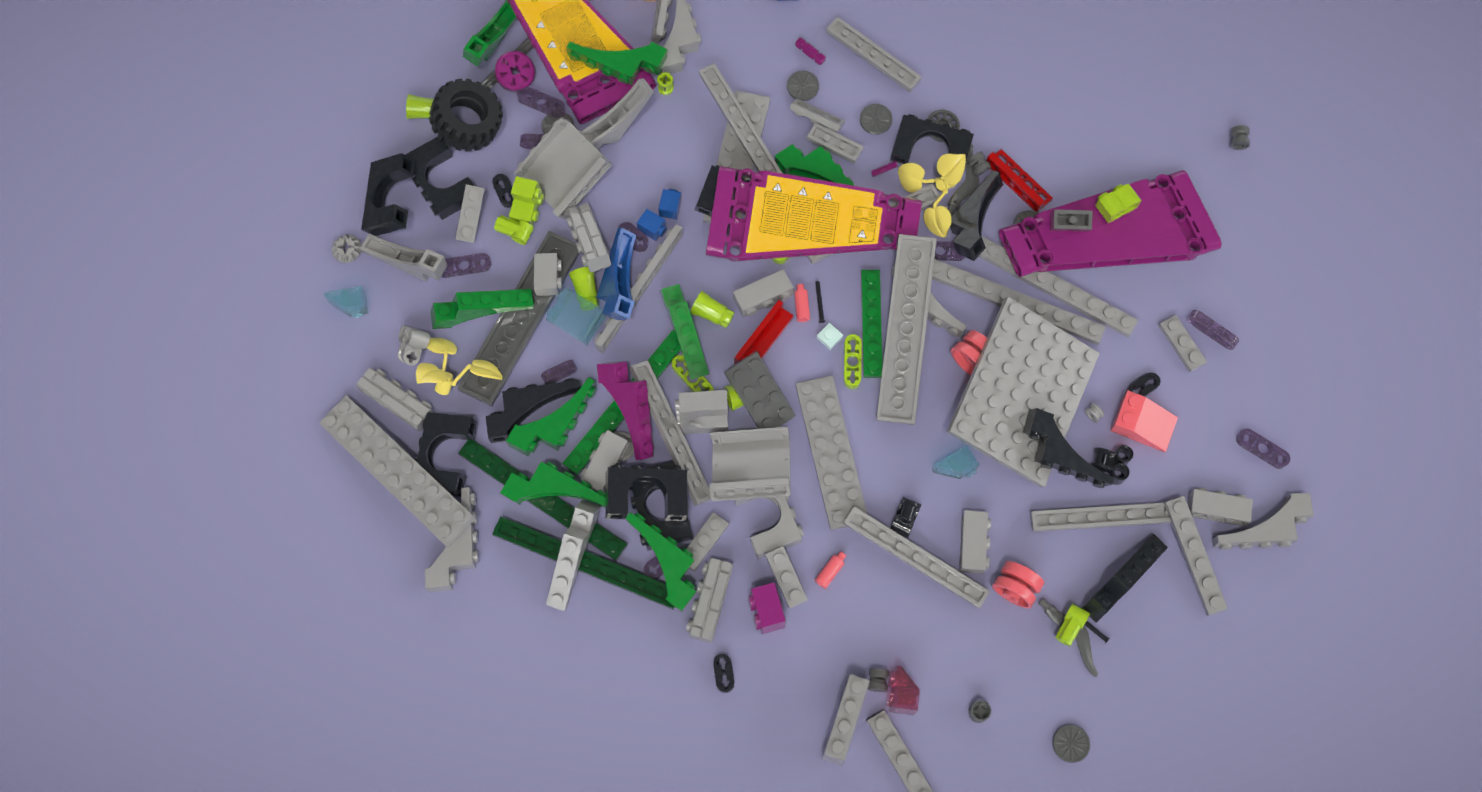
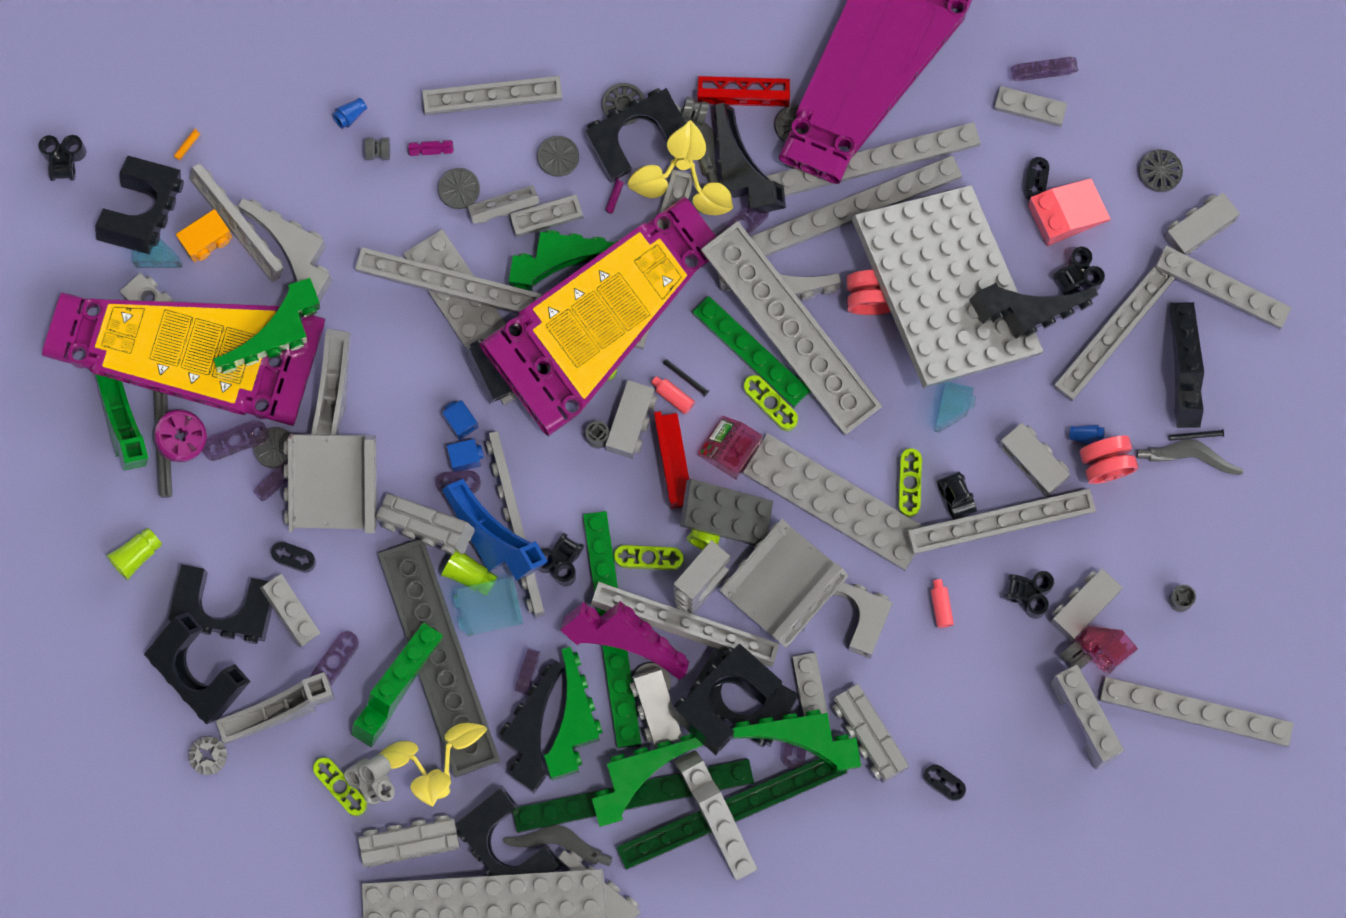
camera: 45 degrees left, 5 degrees up
(349, 301) = (268, 799): clear light blue slope -> none
(388, 328) = (323, 778): none -> lime beam
(469, 95) = (187, 496): black tyre -> none
(480, 483) = (563, 837): none -> dark grey piece
(518, 231) = (350, 581): lime piece -> none
(526, 201) = (330, 549): lime brick -> none
(547, 274) = (424, 594): light grey brick -> none
(643, 330) = (563, 556): none -> black piece
(667, 84) = (335, 304): lime bush -> none
(684, 330) = (599, 521): green arch -> none
(712, 310) = (602, 480): lime plant -> none
(732, 284) = (597, 439): none -> dark grey wheel
(767, 607) = (926, 691): magenta brick -> none
(780, 24) = (383, 148): none -> dark grey wheel
(786, 576) = (912, 648): light grey plate -> none
(803, 362) = (730, 446): none -> clear pink slope
(829, 336) = (727, 400): light aqua plate -> none
(889, 614) = (1029, 591): none -> black piece
(893, 470) = (904, 465): none -> lime beam
(917, 655) = (1085, 604): none -> light grey brick
(1021, 557) = (1087, 434): none -> blue cone
(1071, 220) = (836, 90): dark grey brick -> none
(1071, 743) = (1279, 549): dark grey wheel -> none
(1074, 620) = (1182, 443): lime piece -> none
(1094, 413) = (1020, 244): light grey bush -> none
(1118, 202) = (857, 32): lime brick -> none
(1226, 453) = (1161, 170): none -> dark grey wheel
(1273, 461) = (1203, 139): clear purple beam -> none
(1276, 530) = (1264, 198): light grey arch -> none

